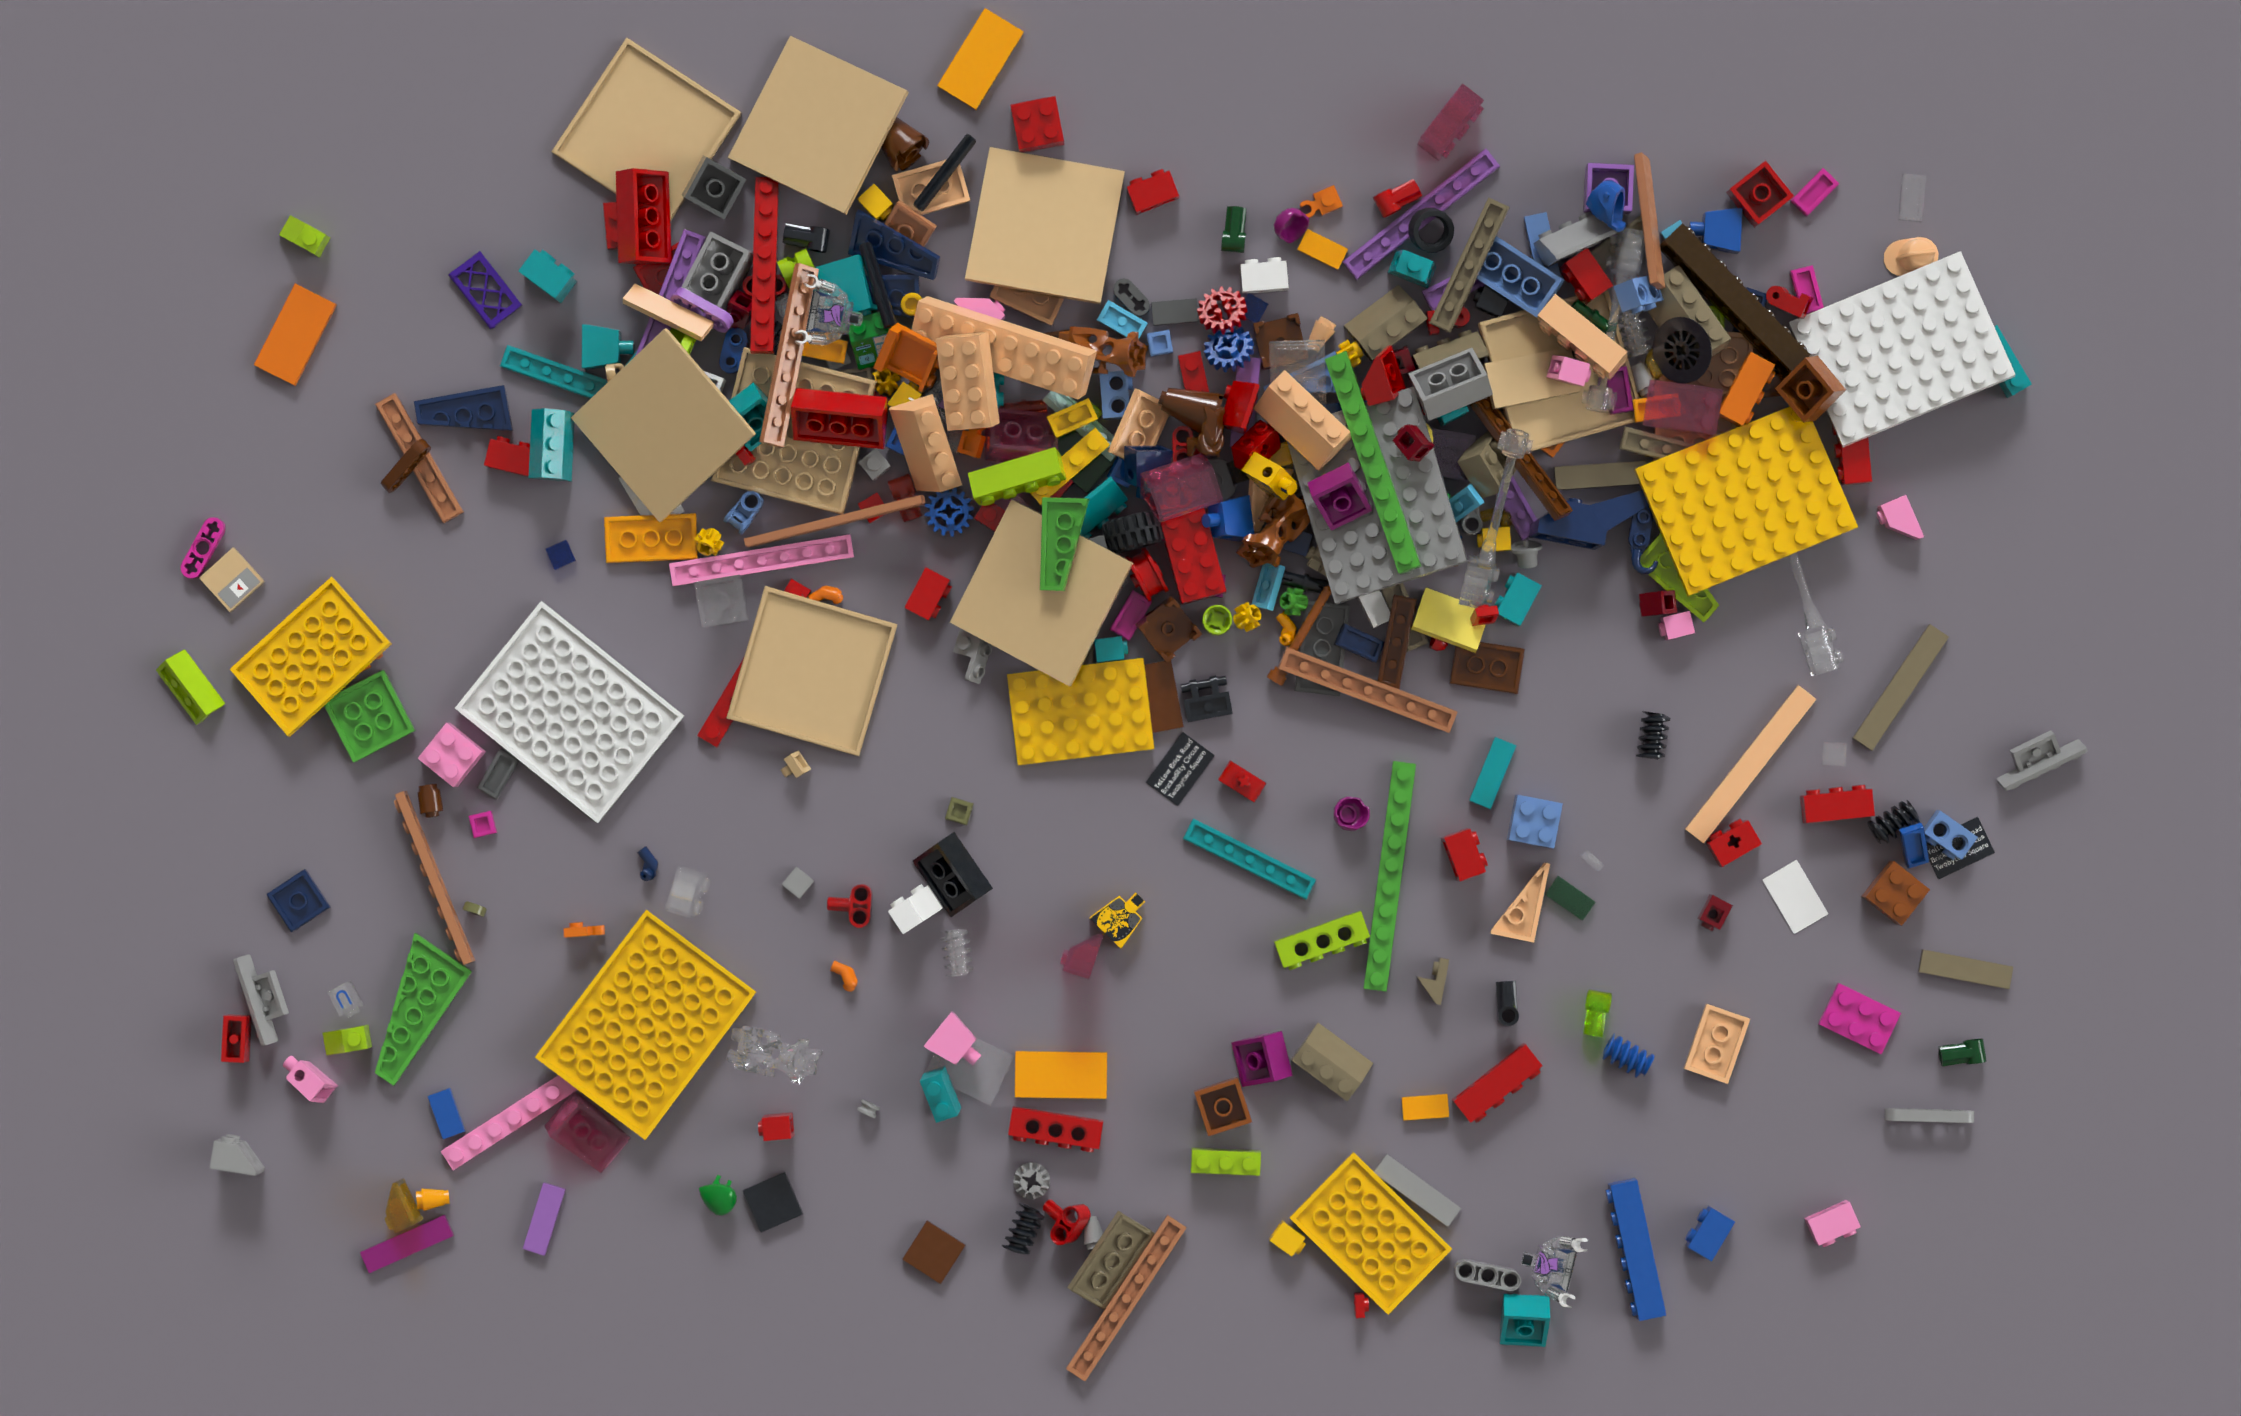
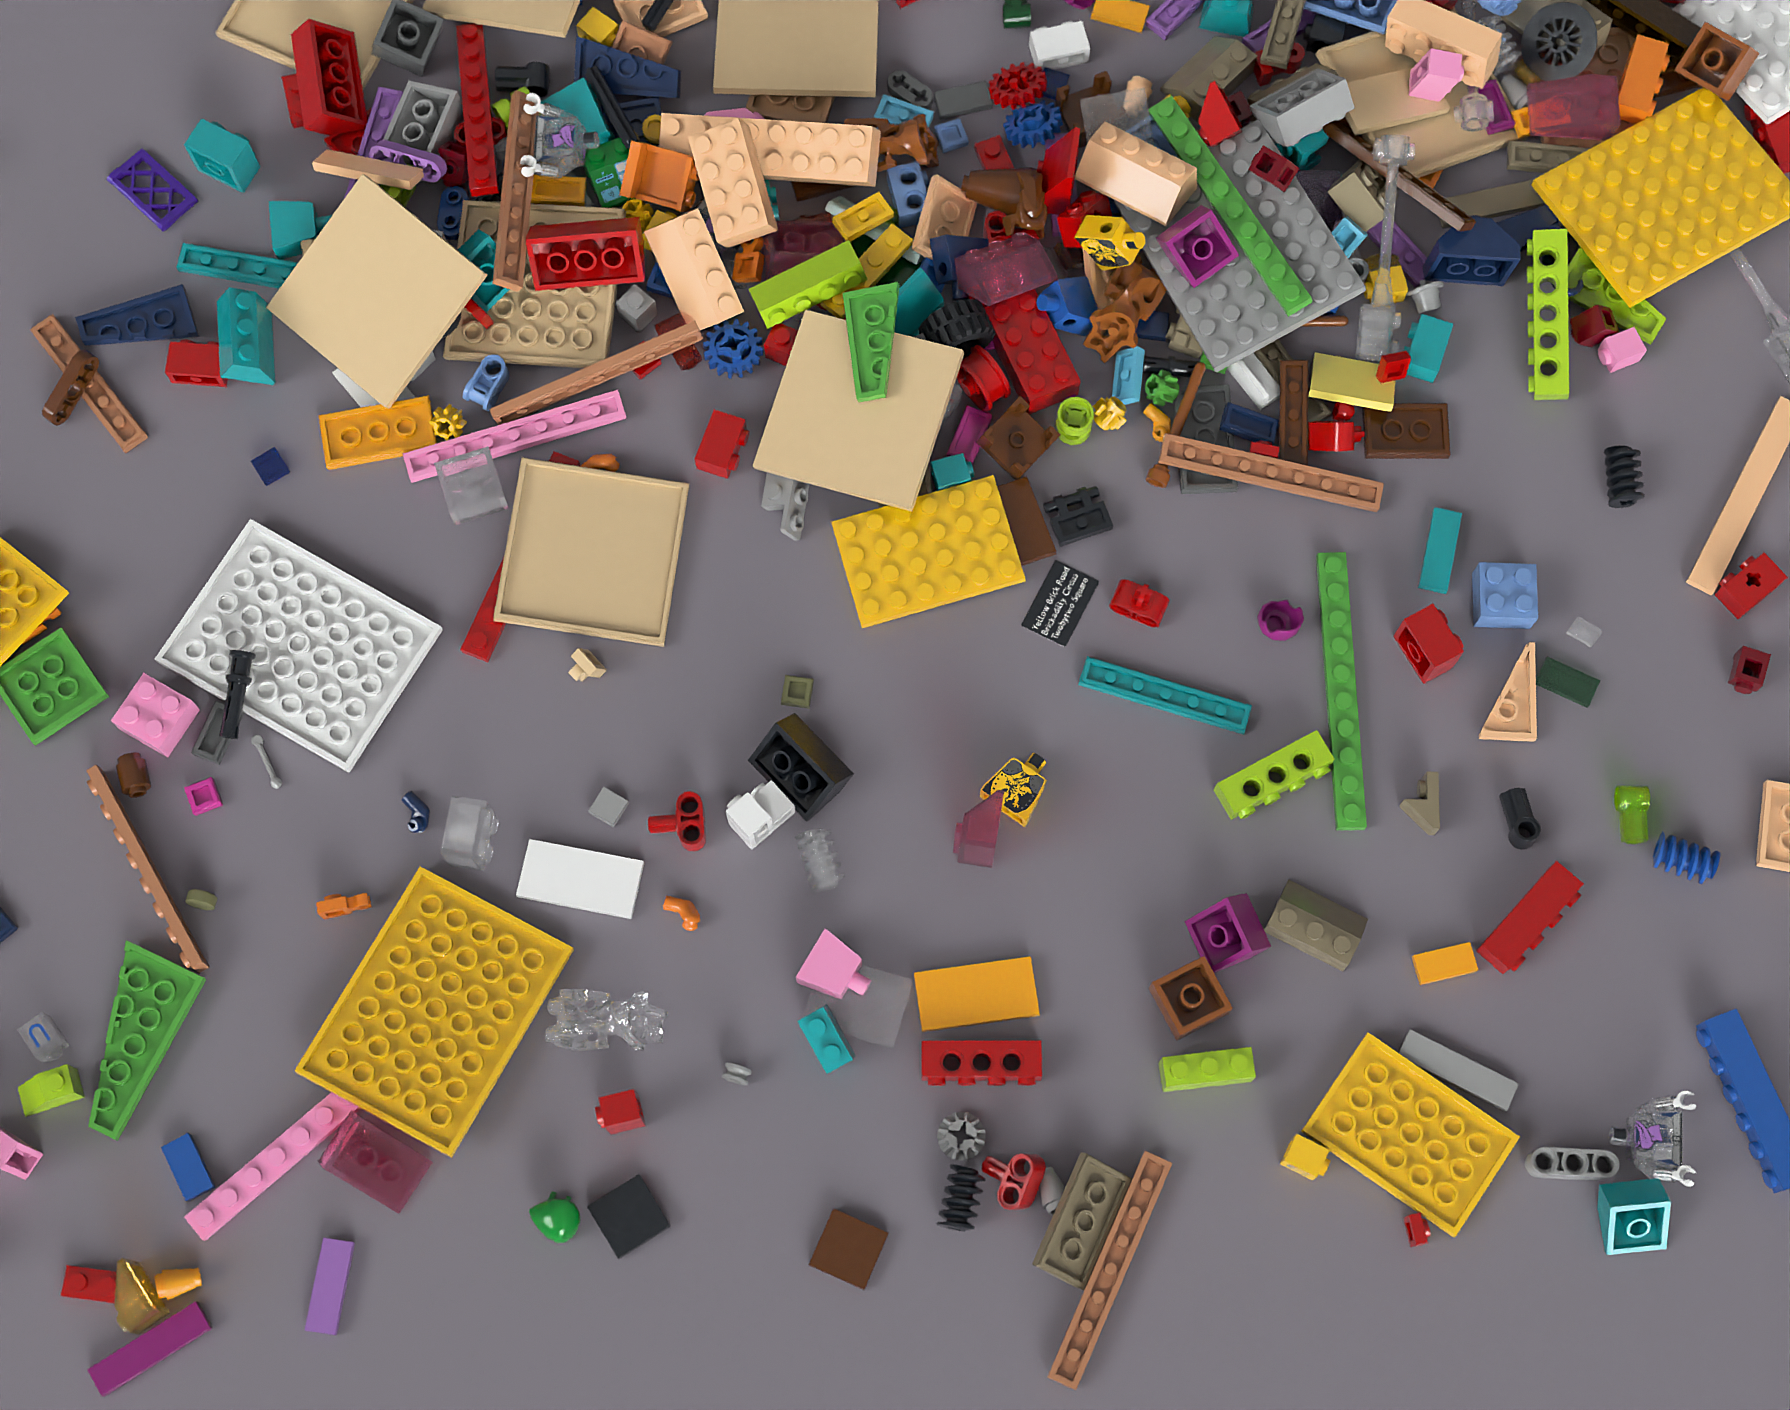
camera: 10 degrees left, 15 degrees down
(368, 1190) = (89, 1284): none -> red plate
(519, 739) = (237, 681): none -> black pin
(529, 785) = (258, 742): none -> light grey hinge
(768, 936) = (580, 879): none -> white tile
(1365, 669) = (1264, 448): none -> red plate
(1424, 667) = (1333, 435): none -> red beam
(1637, 534) = (1552, 243): none -> lime brick

